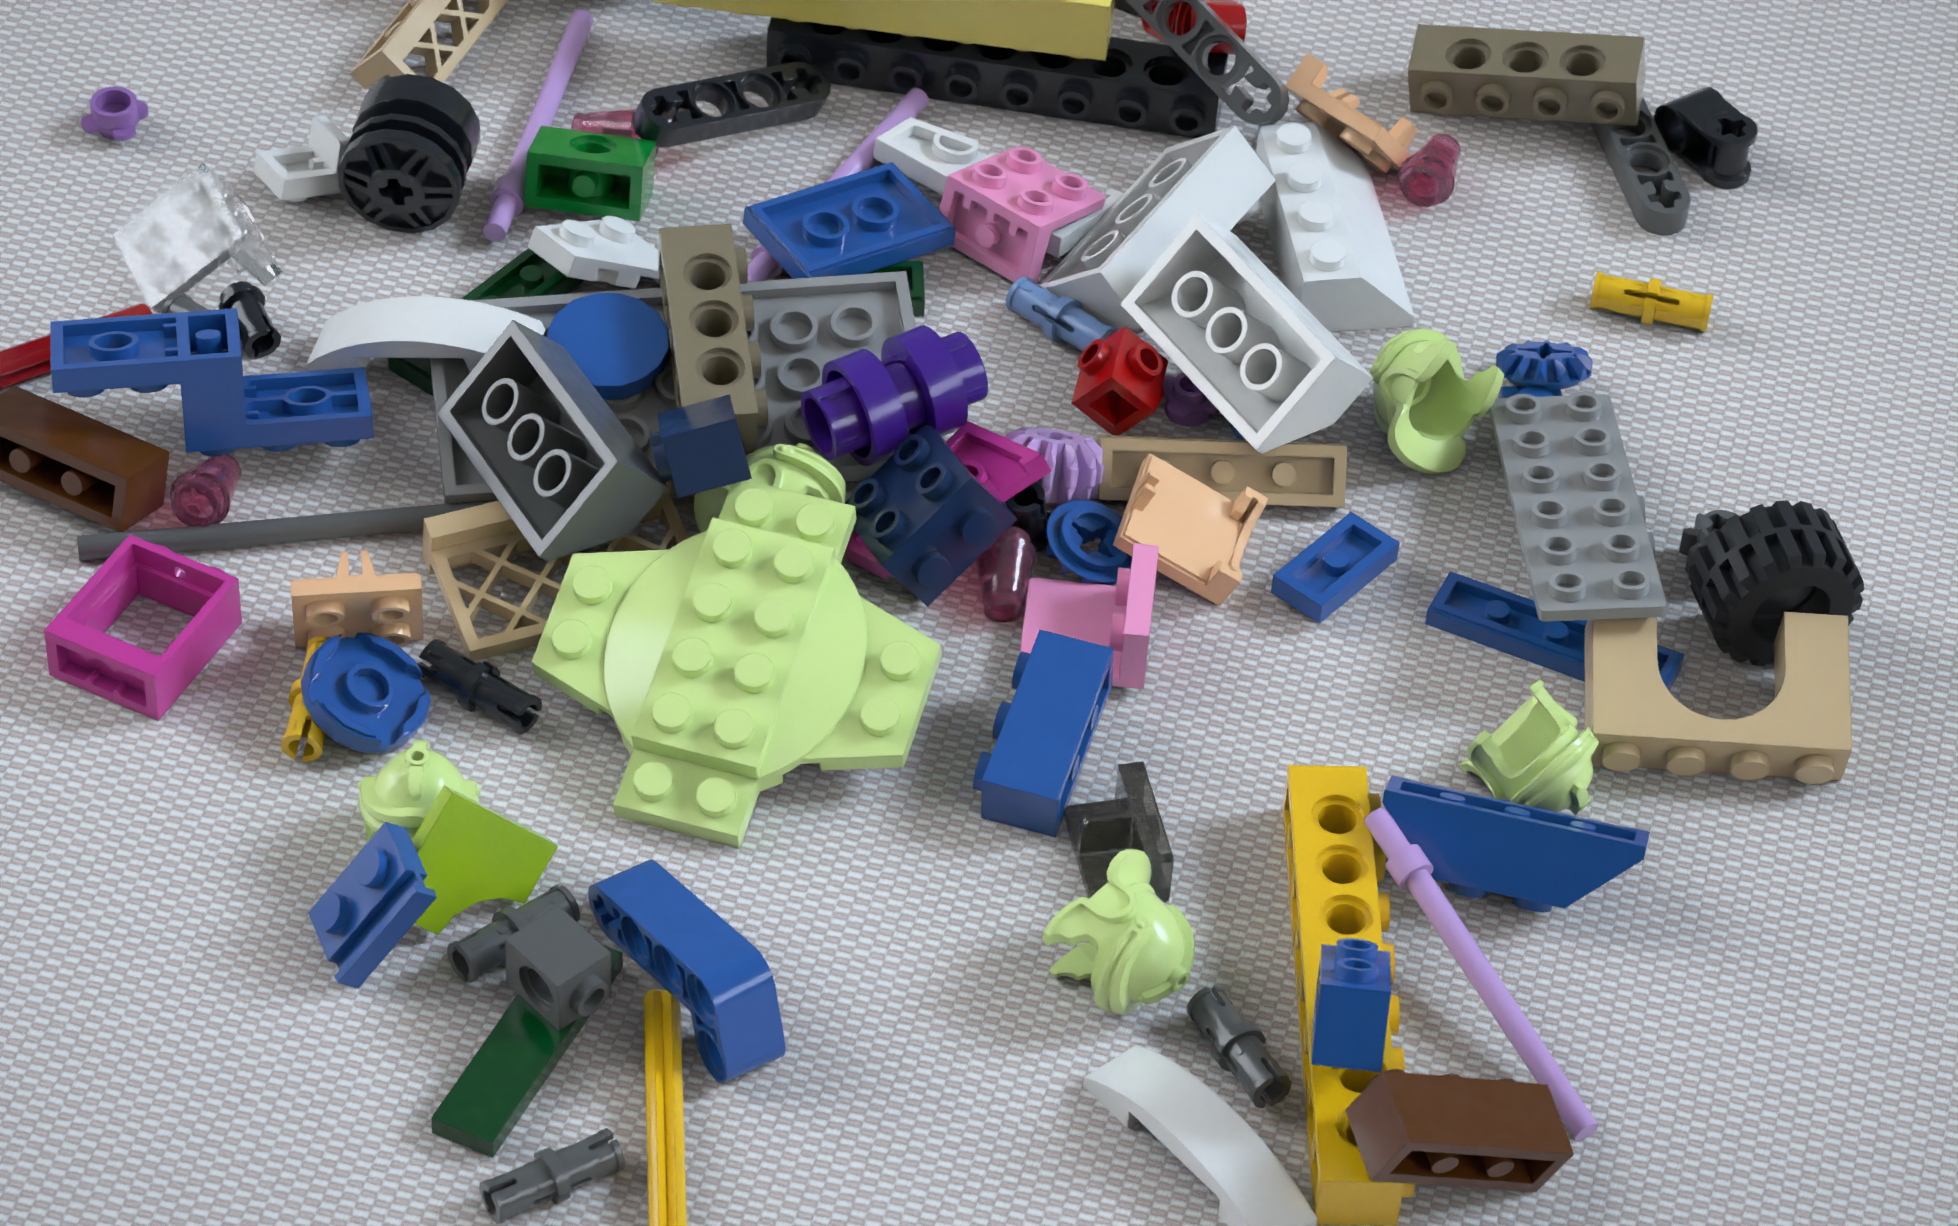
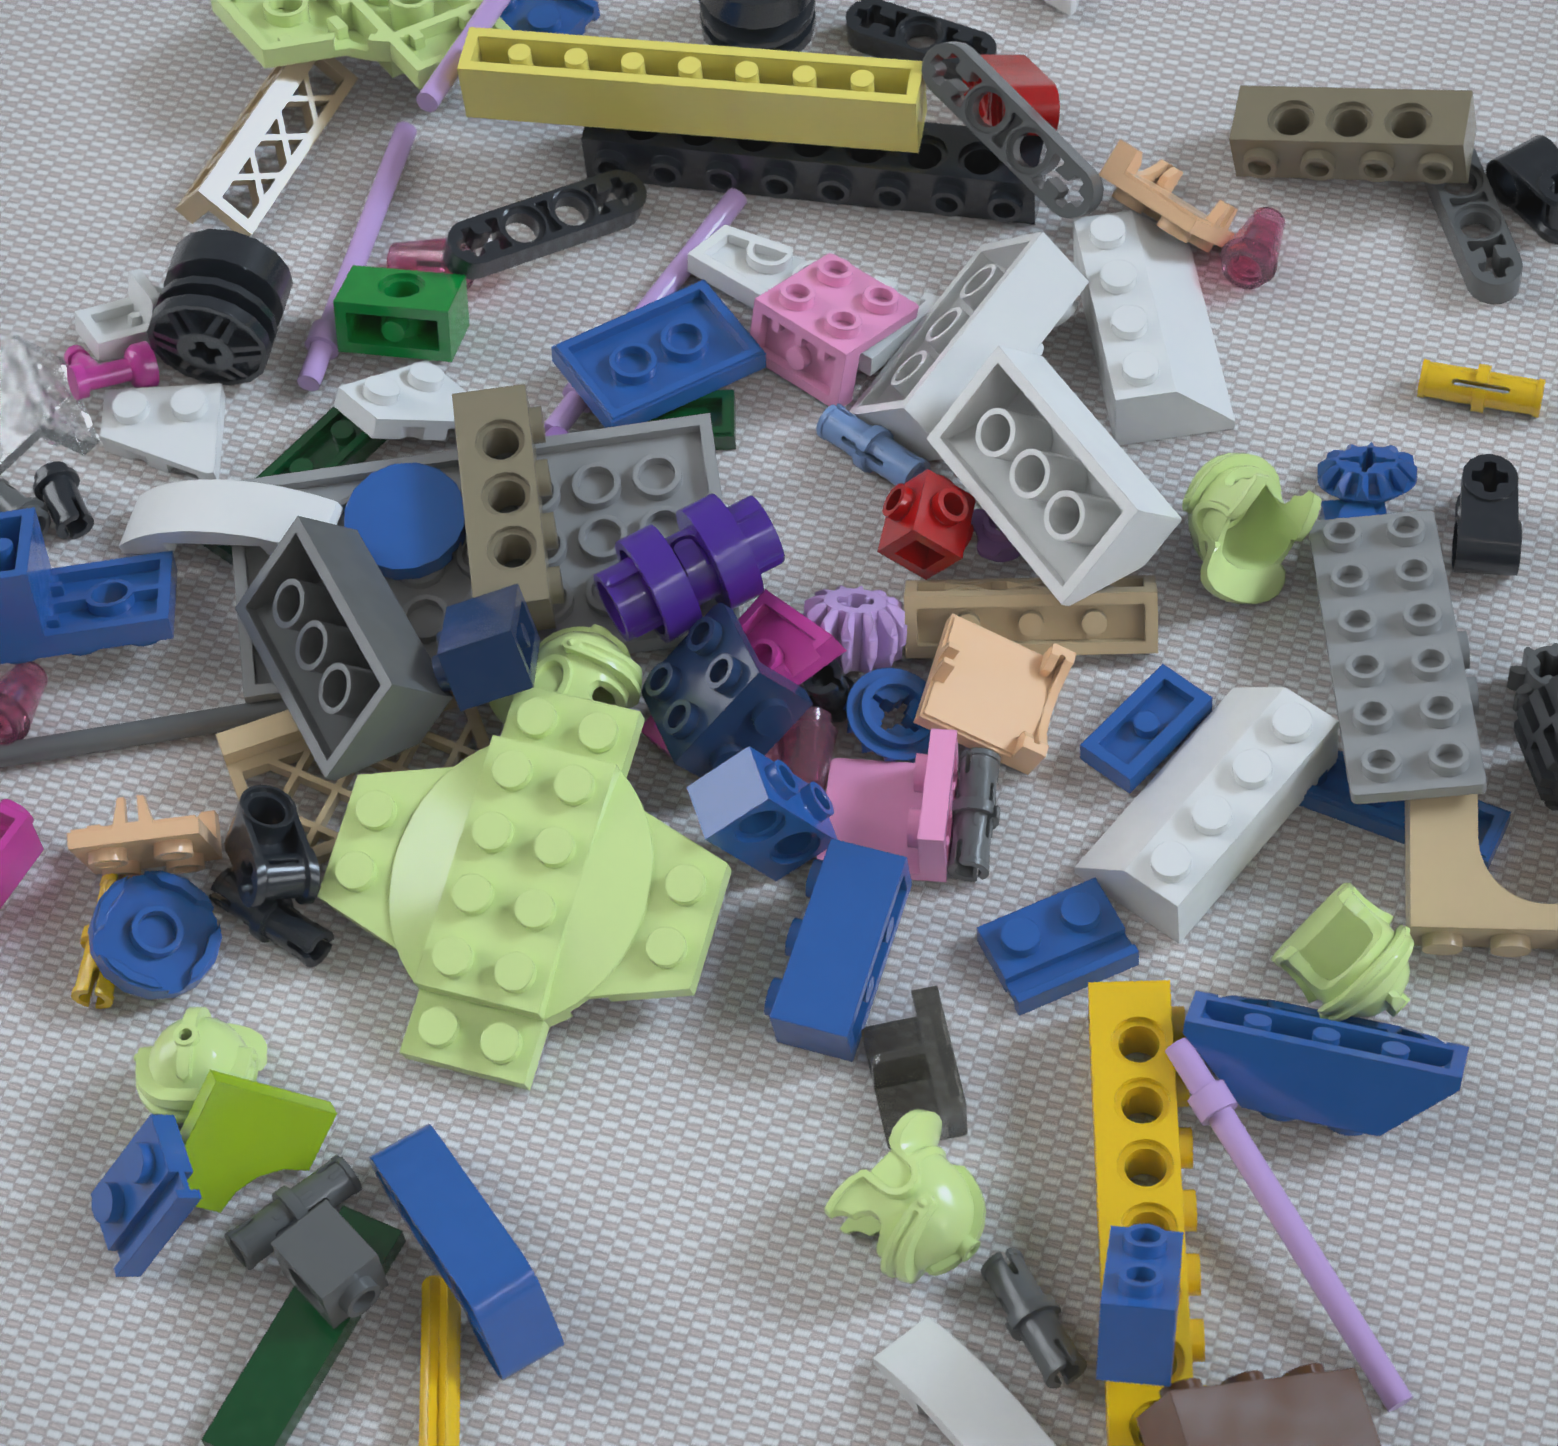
camera: 10 degrees right, 10 degrees up
(321, 207) = (86, 374): none -> dark pink piece
(347, 261) = (167, 426): none -> white wing
(485, 618) = (271, 849): none -> black piece
(971, 608) = (763, 813): none -> blue brick
(1171, 631) = (974, 814): none -> dark grey pin
(1250, 745) = (1057, 946): none -> blue plate
(1403, 634) = (1213, 806): none -> white slope
(1660, 408) = (1487, 518): none -> black piece

